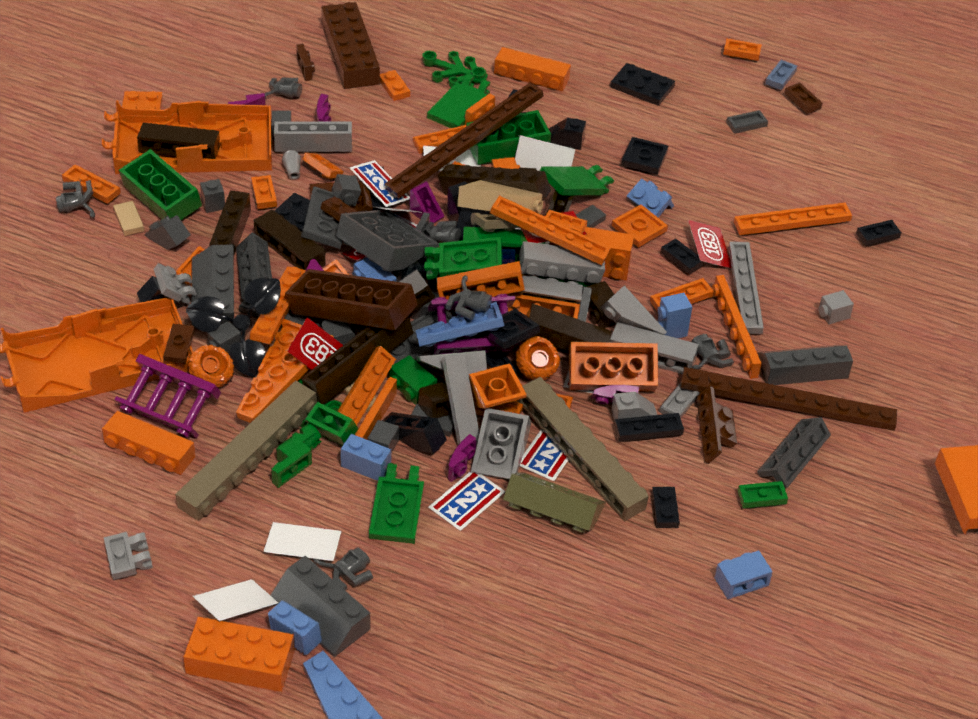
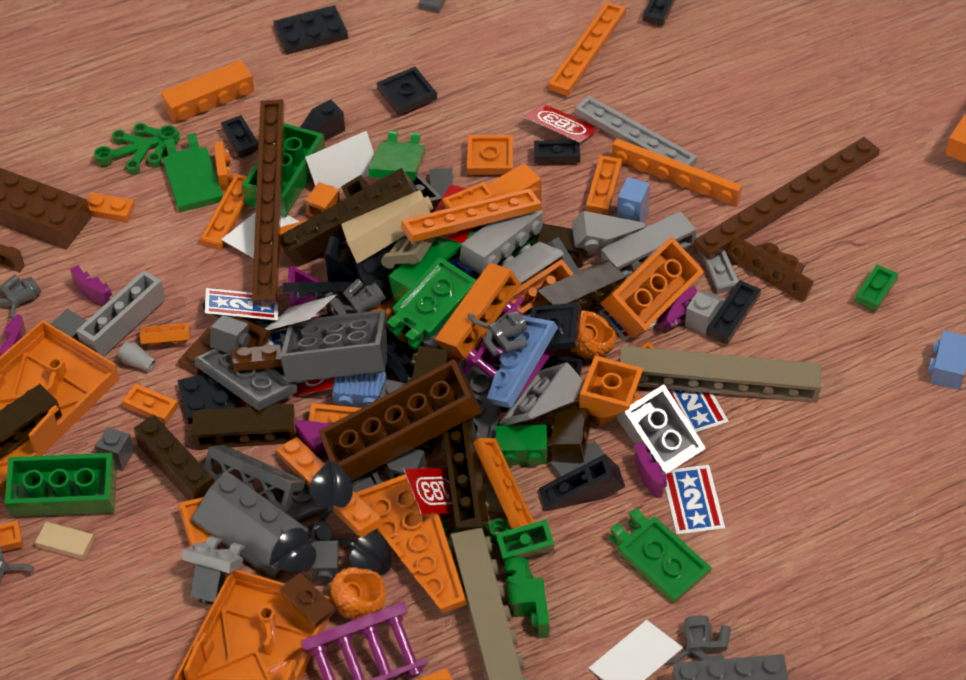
camera: 45 degrees left, 5 degrees up
(168, 232) = (127, 518): dark grey slope -> none
(365, 457) = (585, 542): medium blue brick -> none
(378, 408) = (537, 501): orange tile -> none
(385, 434) = (573, 515): dark grey brick -> none
(423, 204) = (316, 289): none -> black plate
(460, 397) = (592, 421): light grey tile -> none
(553, 501) = (760, 435): olive slope -> none
(650, 197) = (460, 124): medium blue bracket -> none
(665, 507) = (832, 363): black plate -> none
(709, 352) = (688, 206): dark grey piece -> none
(796, 450) = (855, 231): dark grey fence -> none
(806, 364) = (760, 155): dark grey slope -> none
(835, 307) = (718, 93): light grey brick -> none

